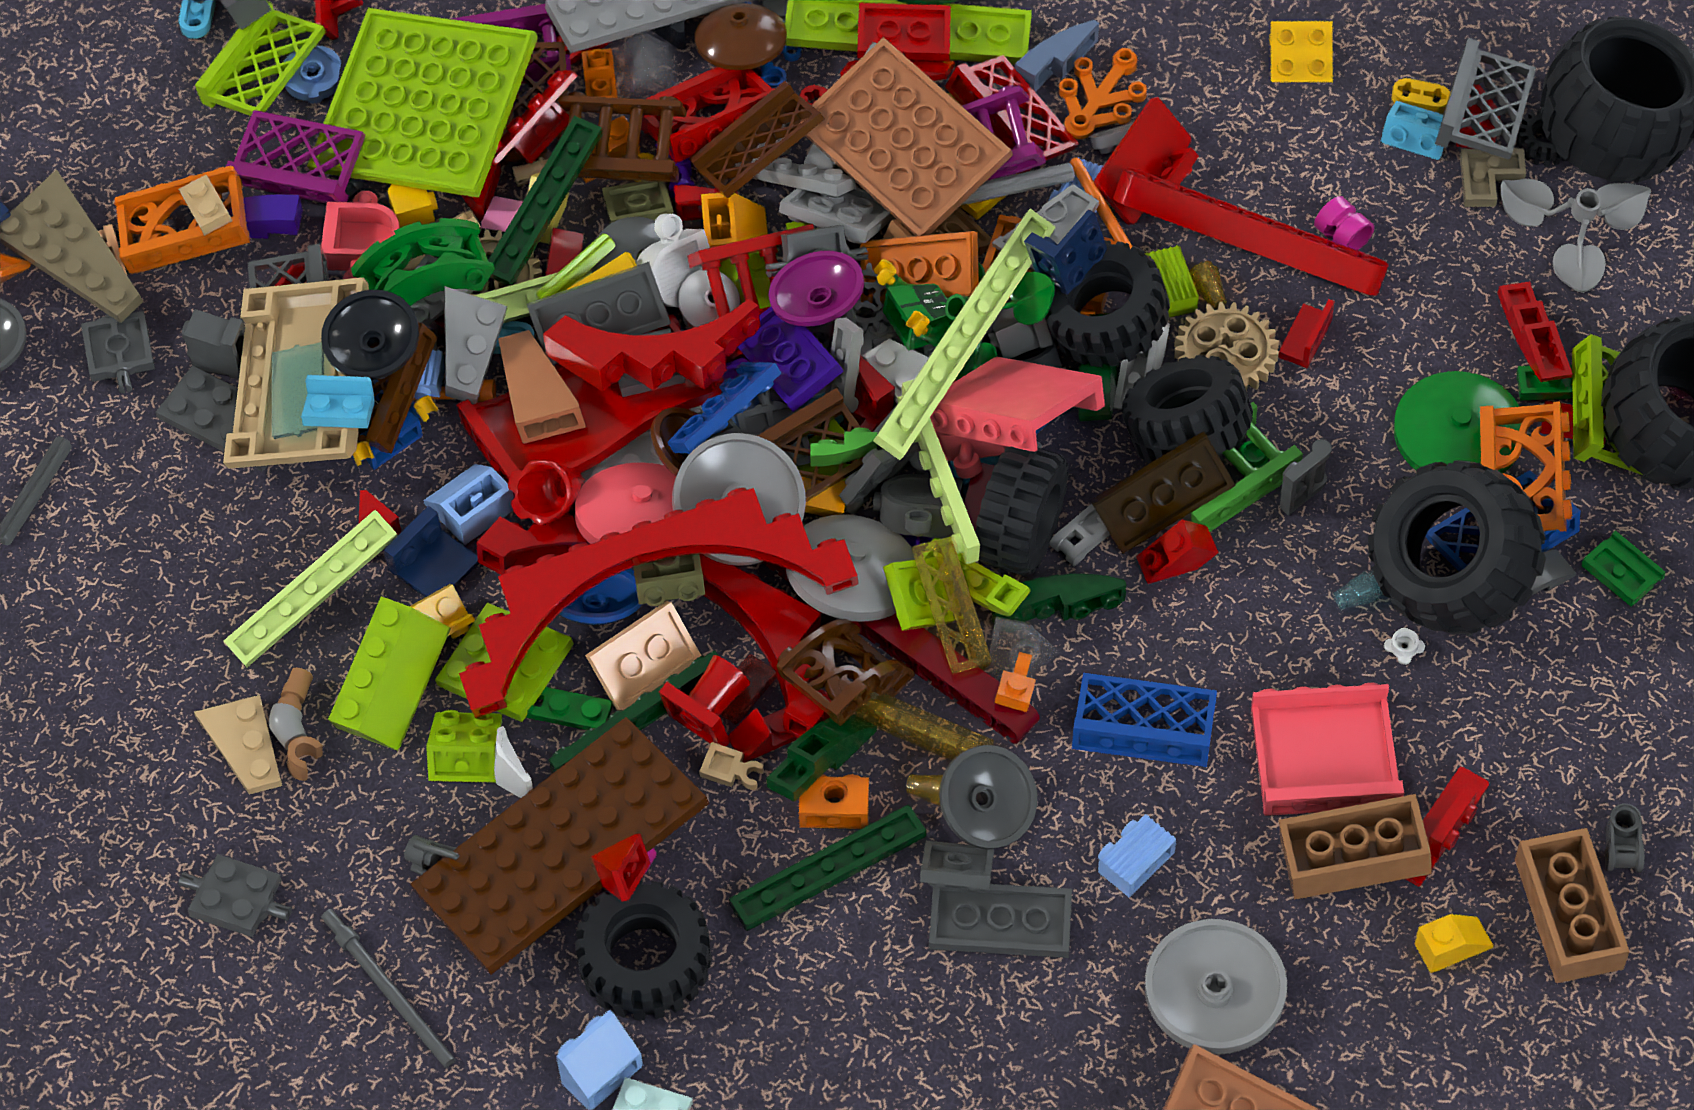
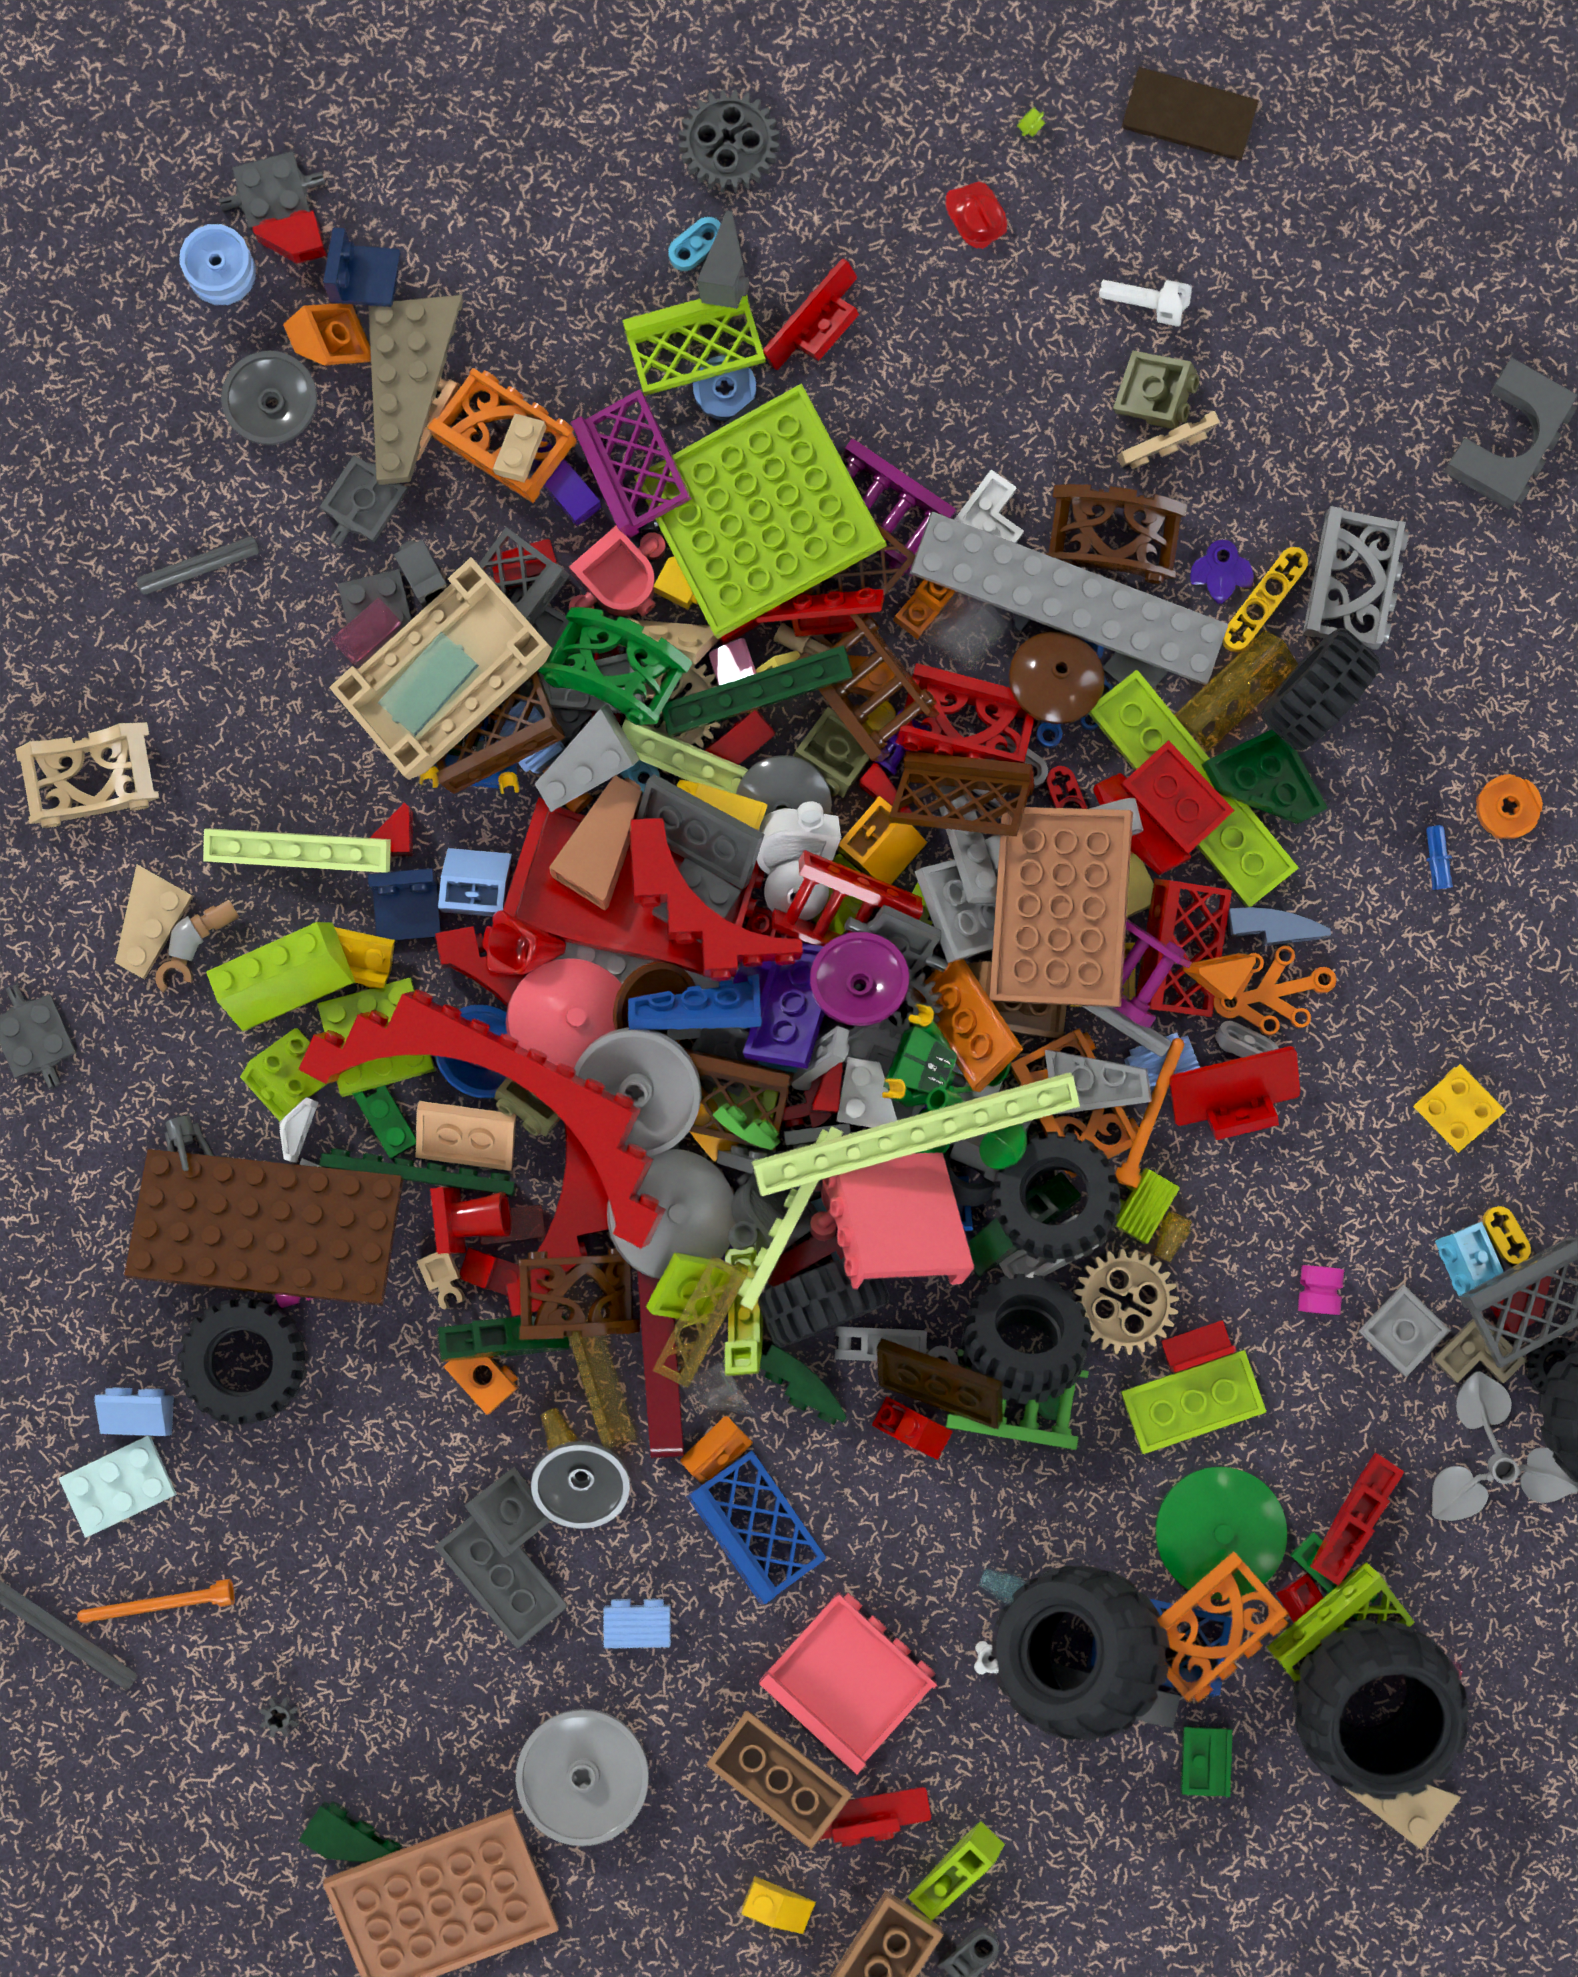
camera: 45 degrees right, 25 degrees up
(45, 694) = (123, 739): none -> tan fence
(211, 415) = (366, 631): none -> clear pink plate
(338, 401) = (433, 733): medium azure bracket -> none
(349, 940) = (73, 1145): dark grey bar -> none
(368, 319) = (487, 689): black dish -> none
(578, 266) = (723, 773): lime axle -> none
(622, 866) = (272, 1300): red slope -> none
(827, 867) = (429, 1419): dark green plate -> none
(1015, 688) = (682, 1424): orange plate -> none
(1055, 106) = (1223, 974): none -> orange slope
(1058, 694) = (716, 1450): none -> orange slope
(1072, 257) = (1045, 1159): dark blue bracket -> none
(1251, 231) = (1242, 1229): red beam -> none
(1305, 478) = (1048, 1467): dark grey plate -> none
(1344, 367) = (1193, 1402): none -> lime plate
(1426, 207) = (1404, 1330): none -> light grey tile
(1546, 789) = (957, 1870): none -> lime slope

